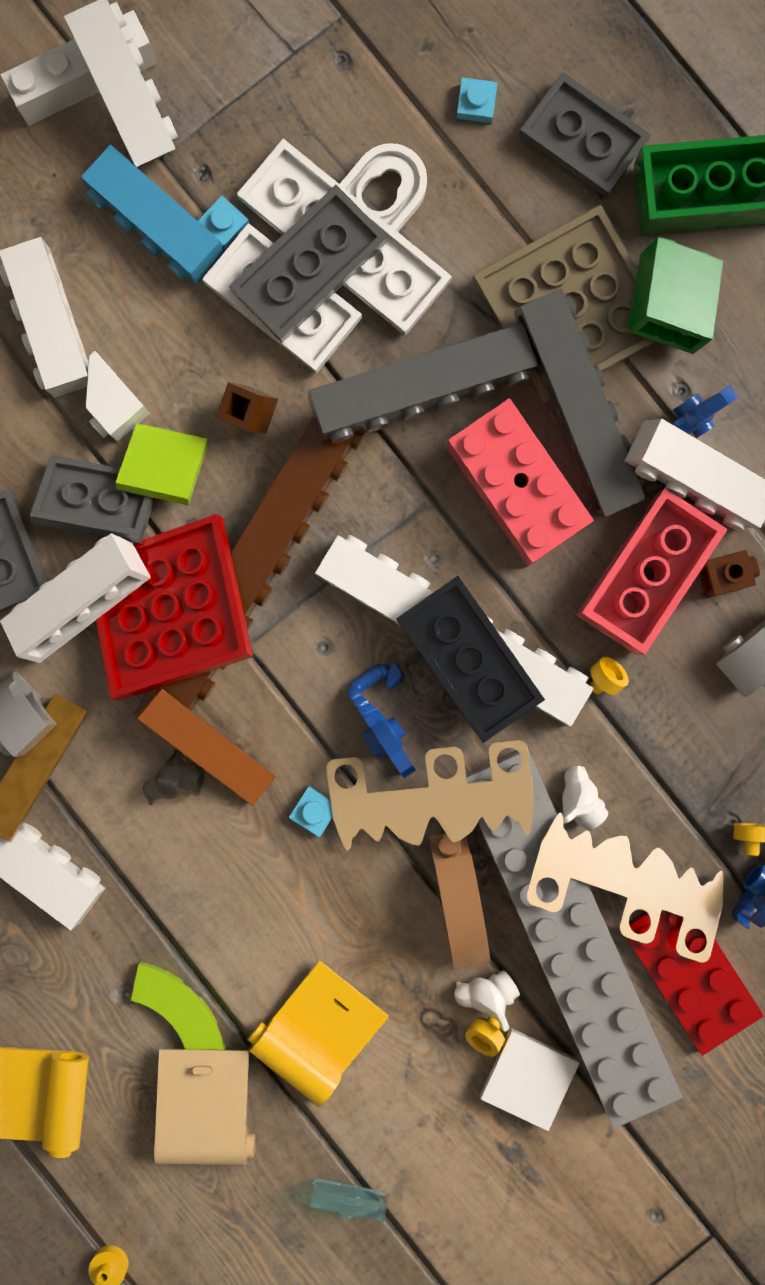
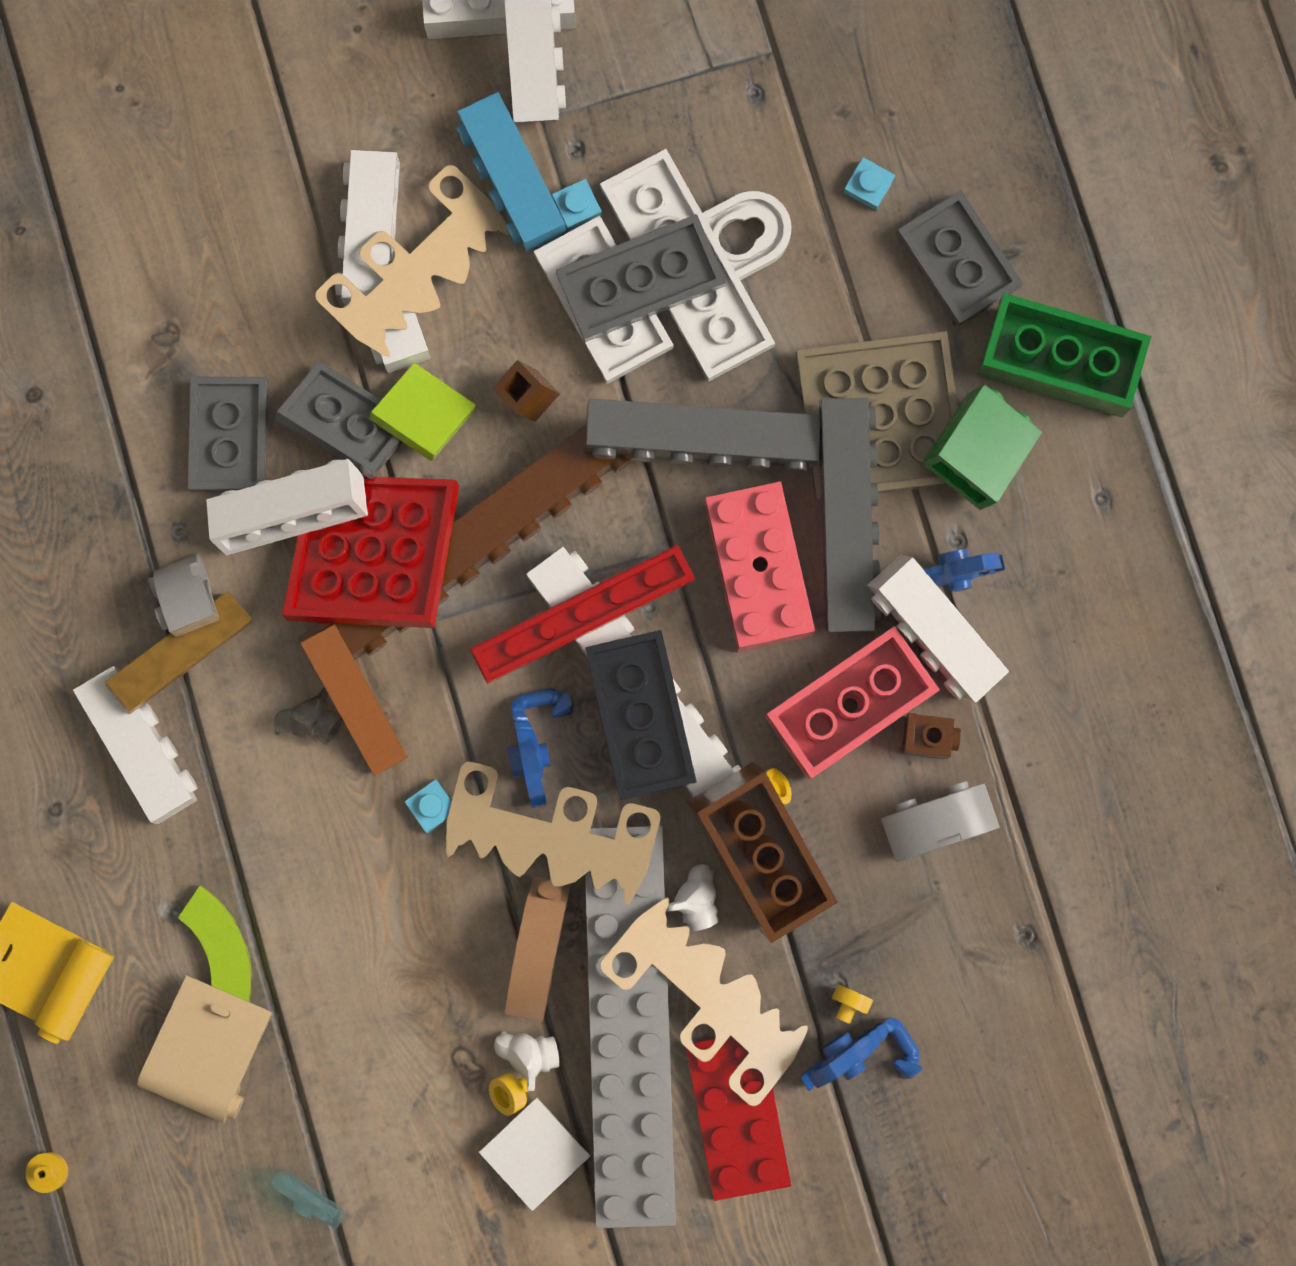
camera: 25 degrees right, 5 degrees down
(98, 347) = (408, 278): none -> tan piece
(315, 1036) = (342, 1026): yellow door -> none
(380, 589) = (582, 614): none -> red tile
(627, 737) = (762, 852): none -> reddish brown brick

